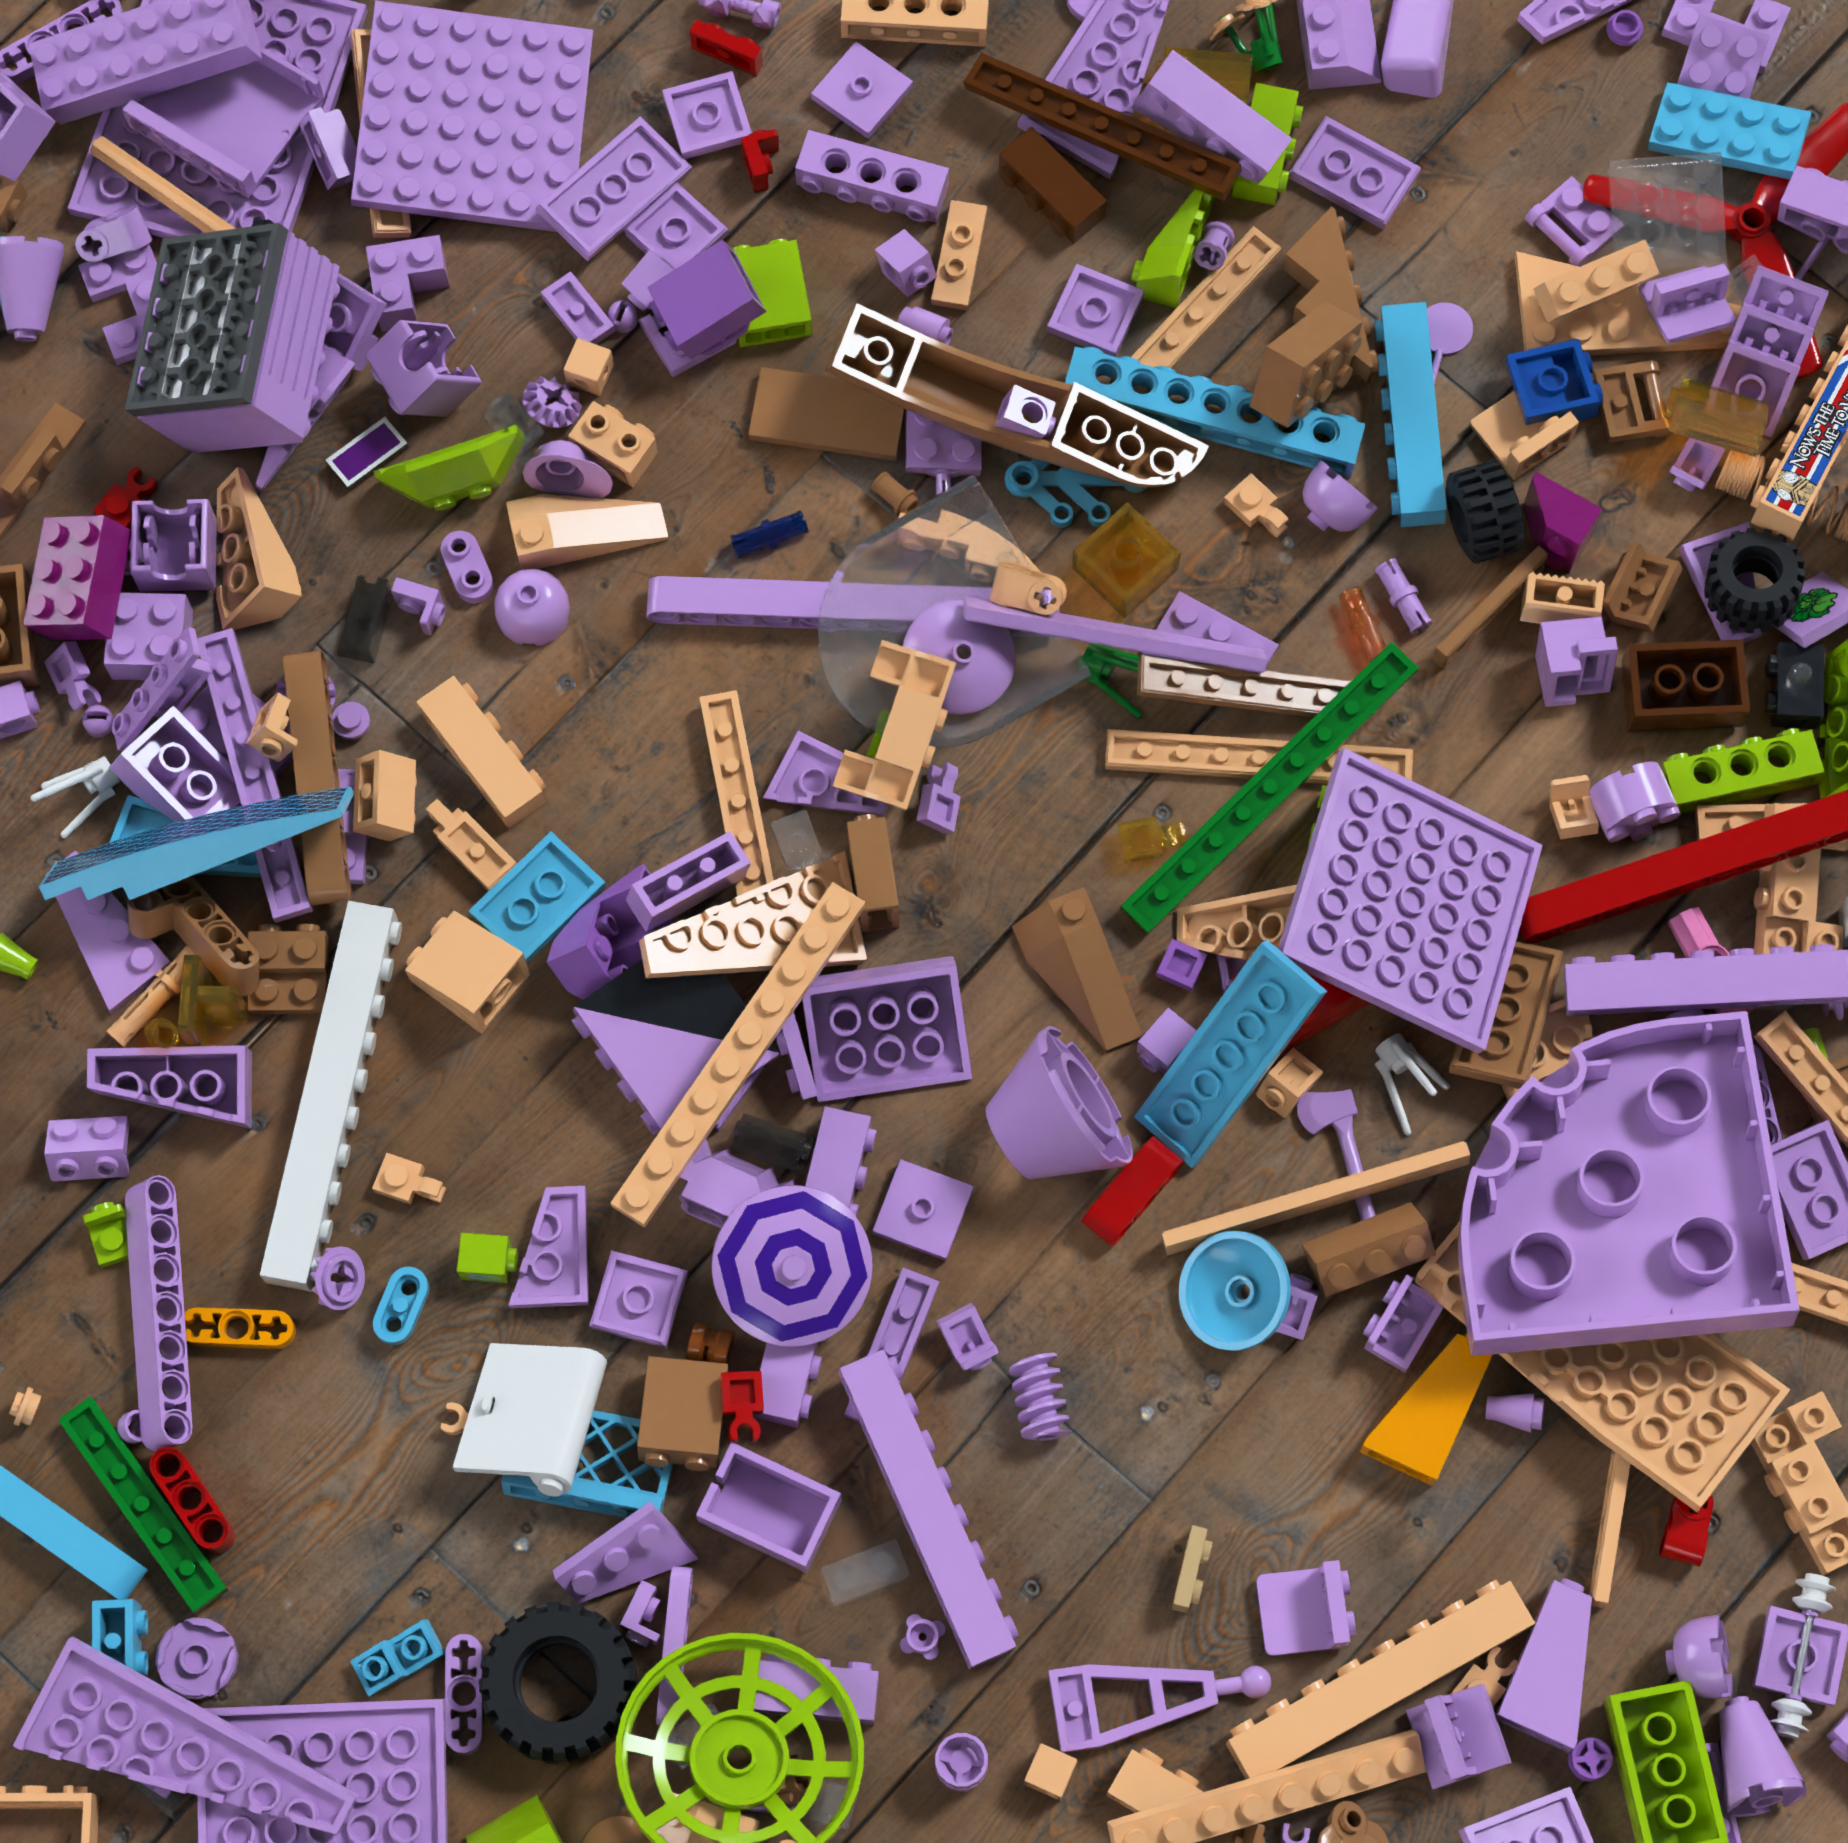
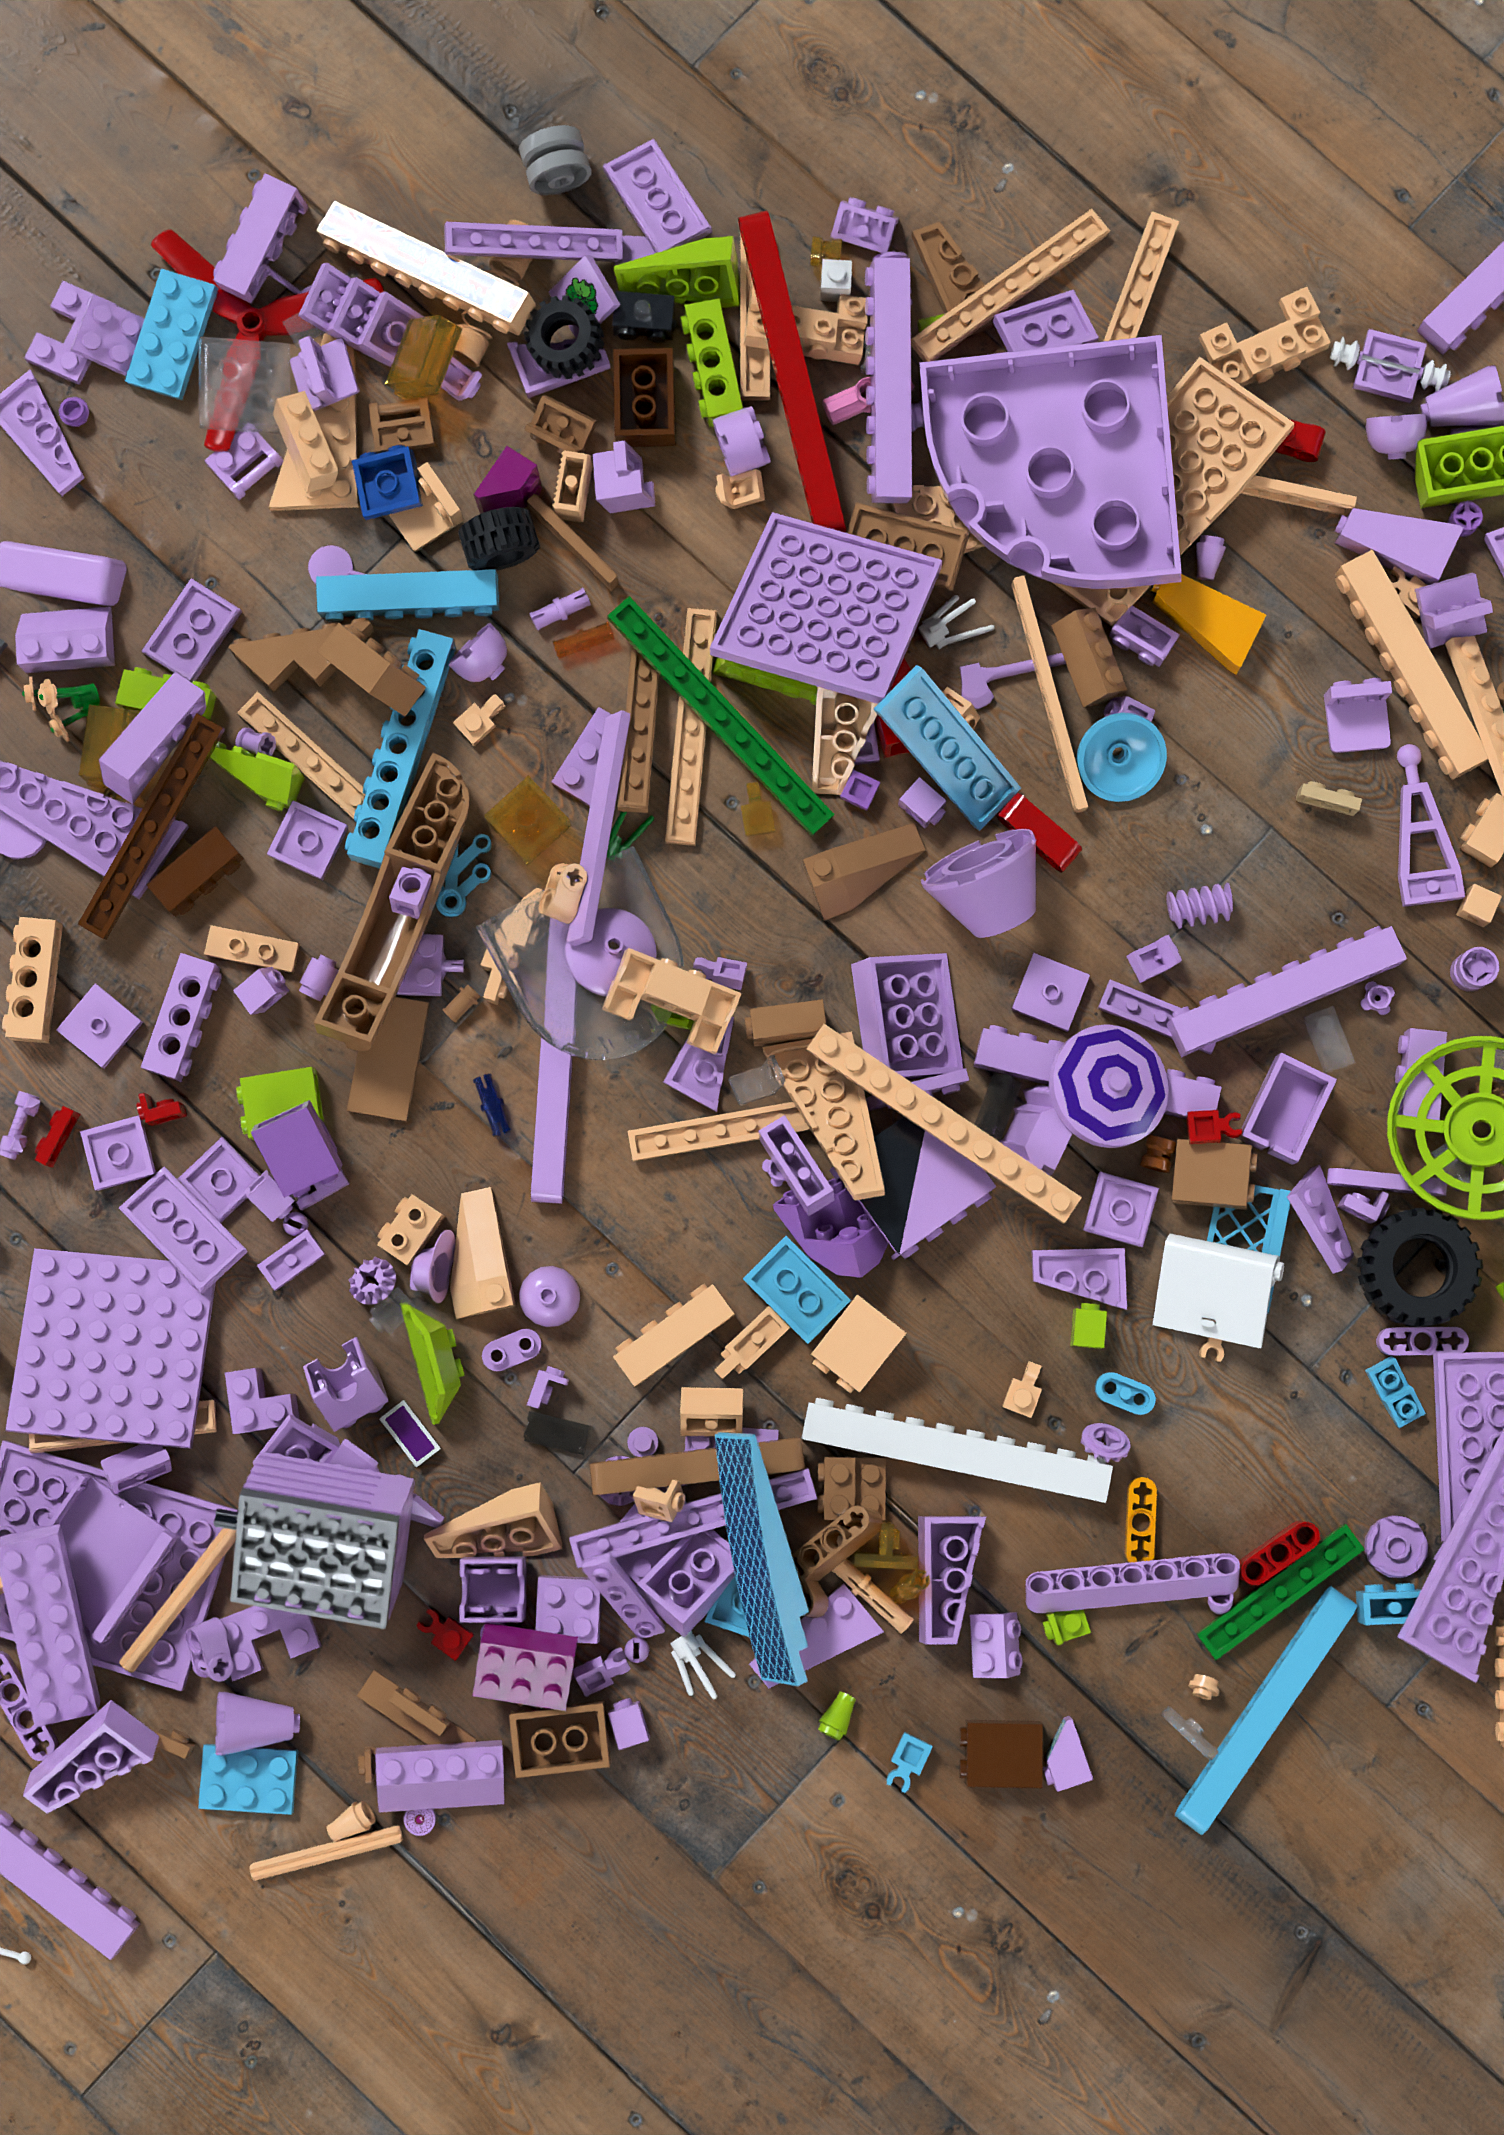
camera: 85 degrees left, 10 degrees up
(588, 366) = (342, 1250): light nougat piece -> none

